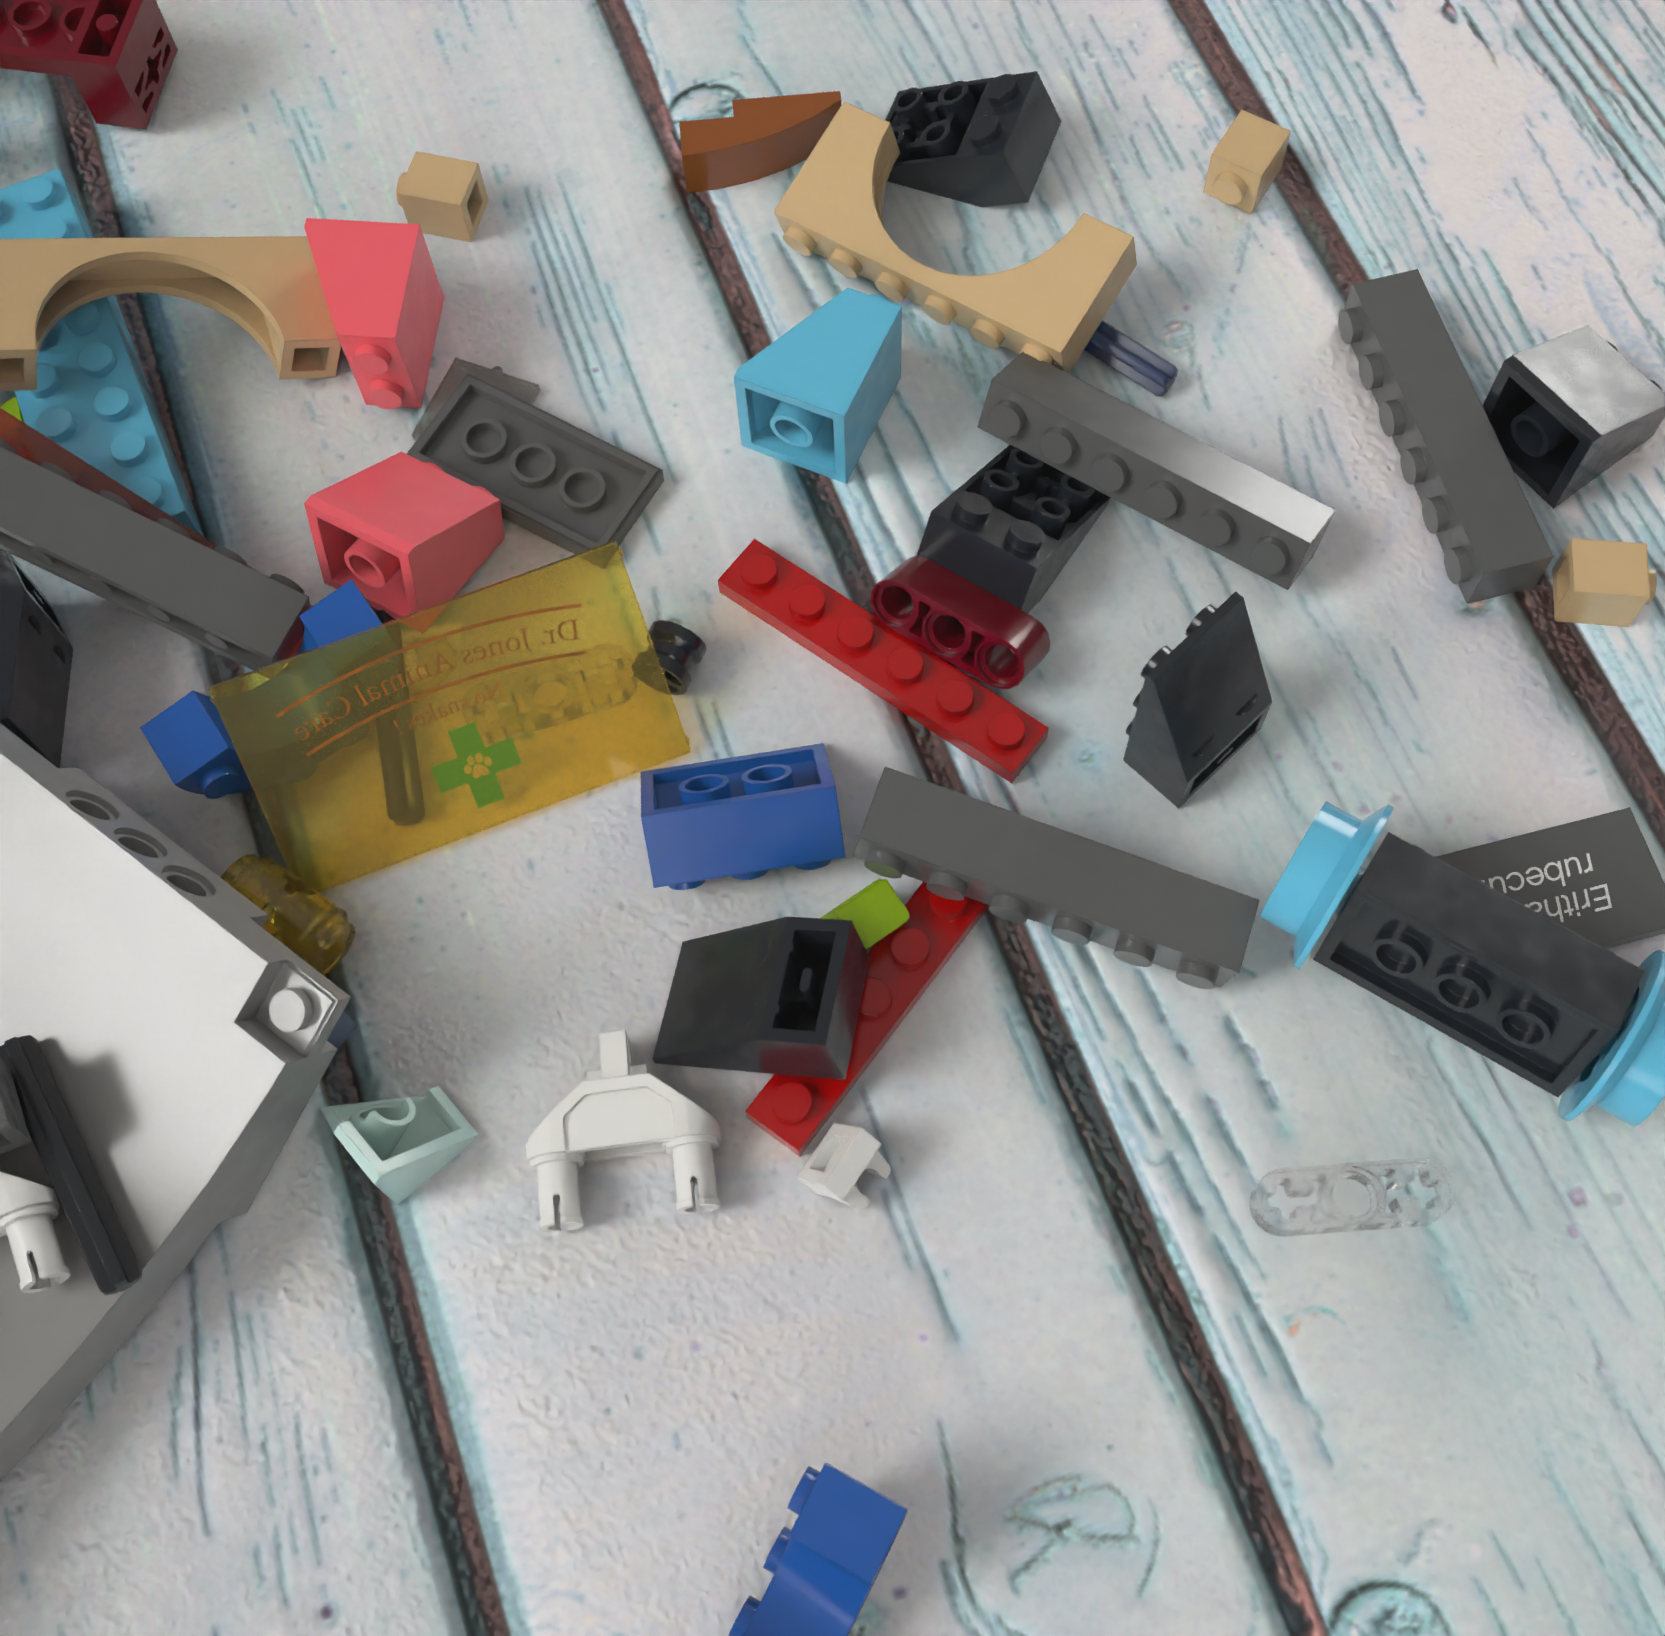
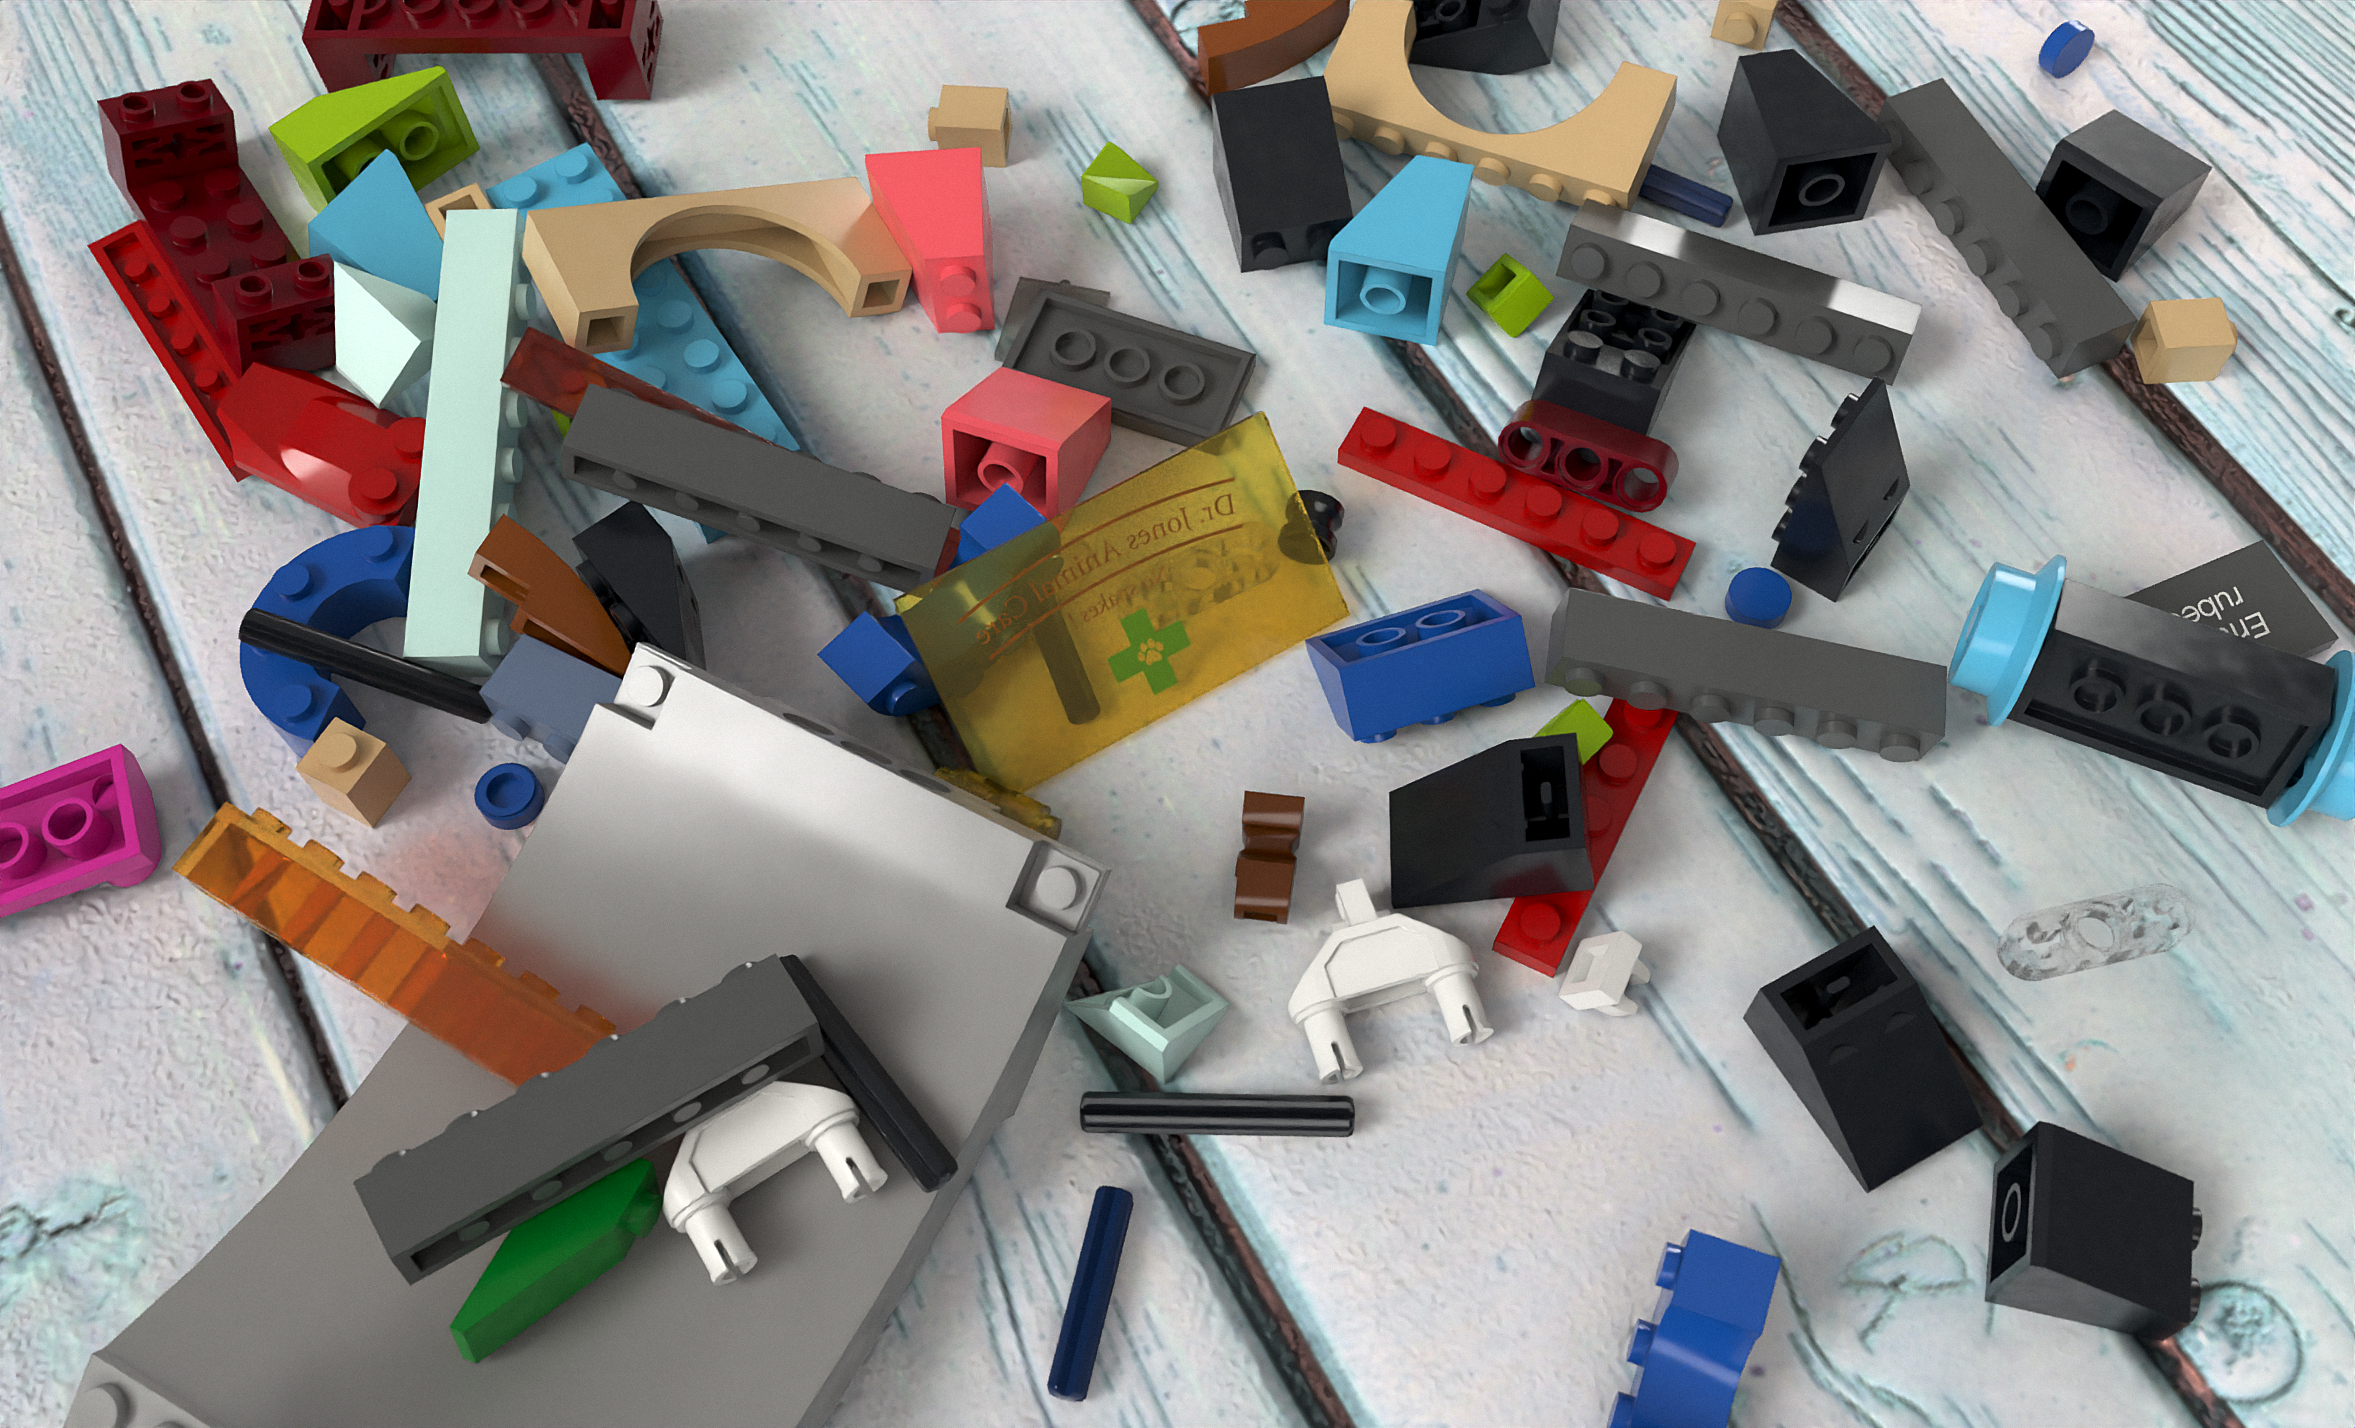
camera: 10 degrees left, 5 degrees down
(270, 1407) = (1090, 1294): none -> dark blue axle
(435, 1245) = (1217, 1114): none -> black axle
(539, 1007) = (1268, 861): none -> reddish brown leg
(570, 274) = (1117, 184): none -> lime slope
(720, 281) = (1279, 172): none -> black slope
(928, 442) = (1510, 295): none -> lime slope
(1079, 1297) = (1865, 1058): none -> black slope
(1098, 794) = (1758, 598): none -> blue tile
(1250, 323) = (1797, 145): none -> black slope
(1262, 1521) = (2092, 1236): none -> black slope
(1561, 251) = (2066, 48): none -> blue tile

